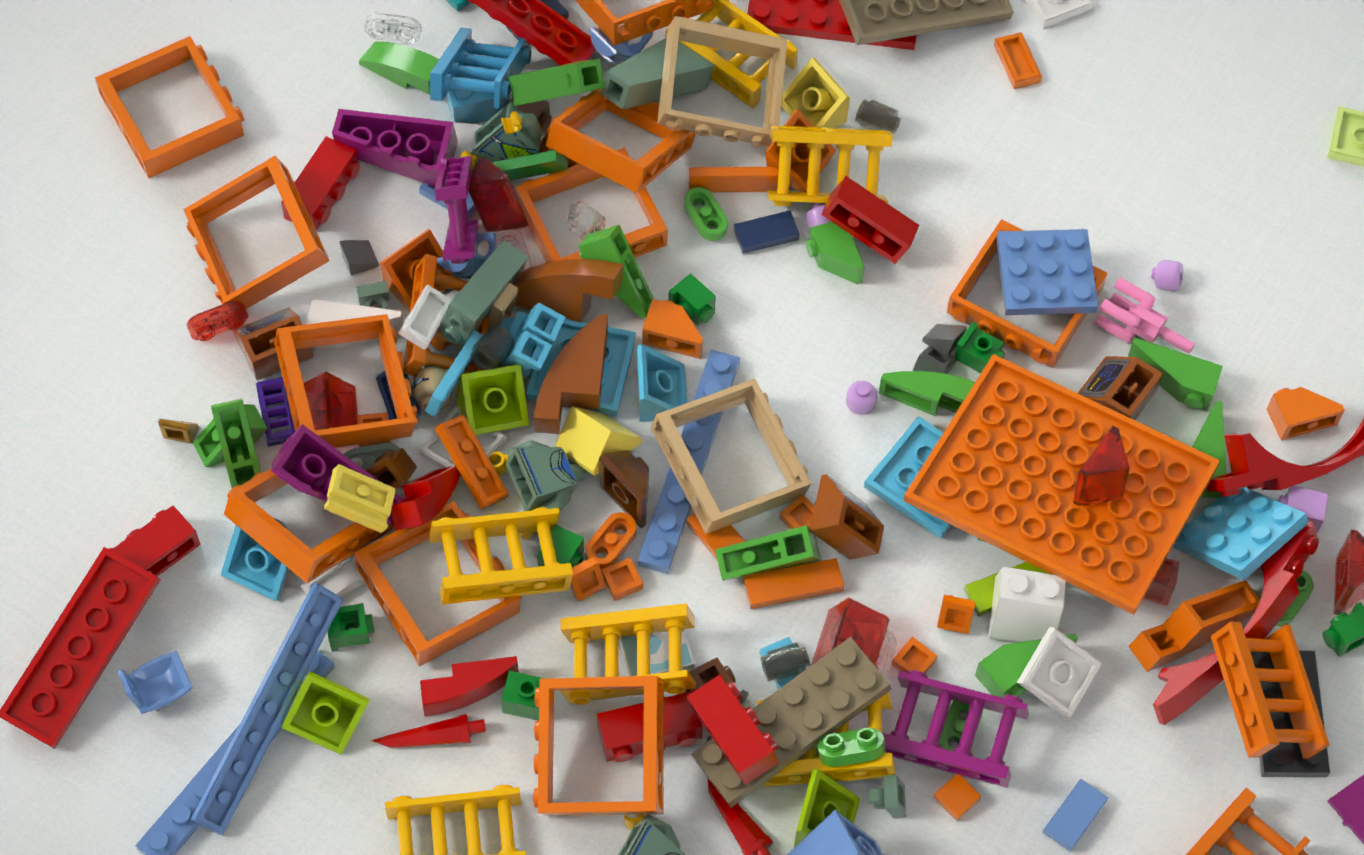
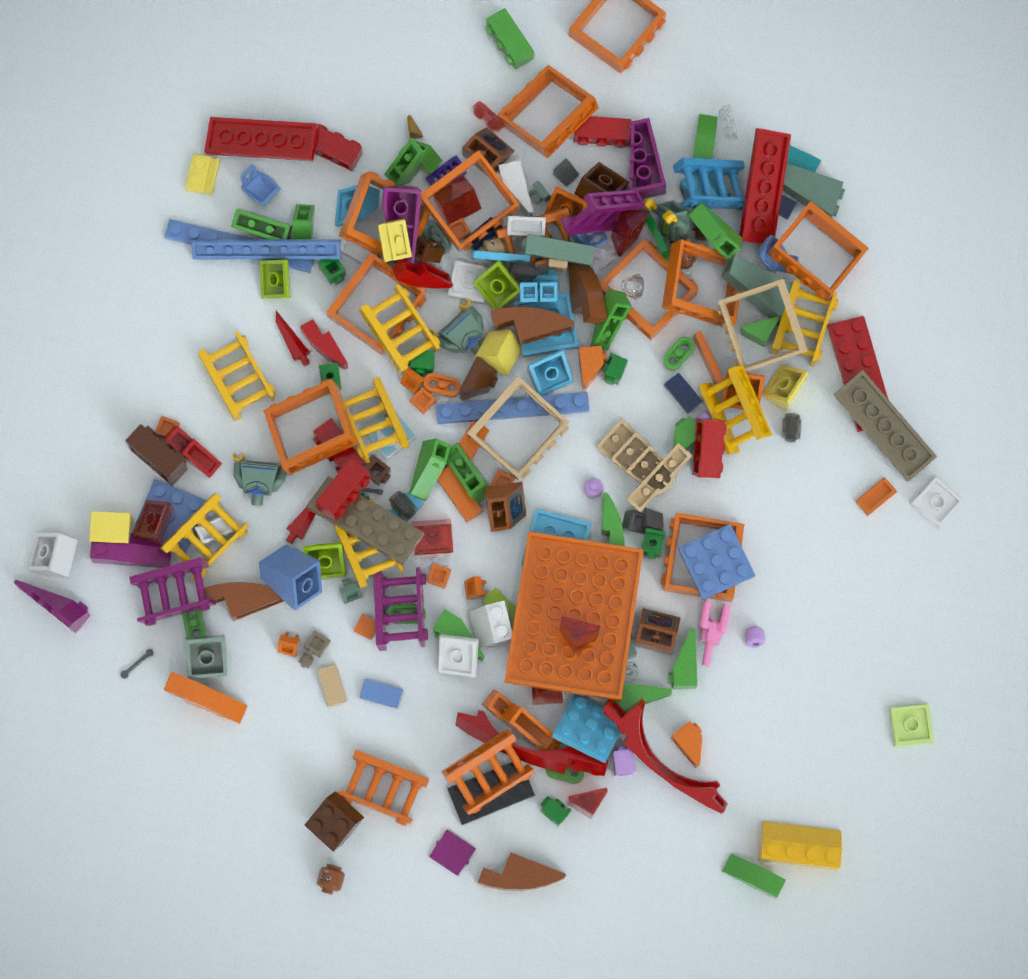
camera: 65 degrees right, 15 degrees up
(85, 767) = (202, 174): none -> light yellow plate
(111, 248) = (509, 39): none -> bright green brick
(223, 702) = (260, 225): none -> bright green brick
(249, 640) = (303, 221): none -> bright green slope
(409, 209) = (600, 179): none -> reddish brown brick
(472, 461) = (456, 290): orange tile -> none
(722, 99) = (759, 331): none -> bright green slope
(734, 599) = (429, 466): none -> bright green slope
(851, 747) = (359, 555): bright green plate -> none
(854, 314) = (642, 462): none -> tan slope

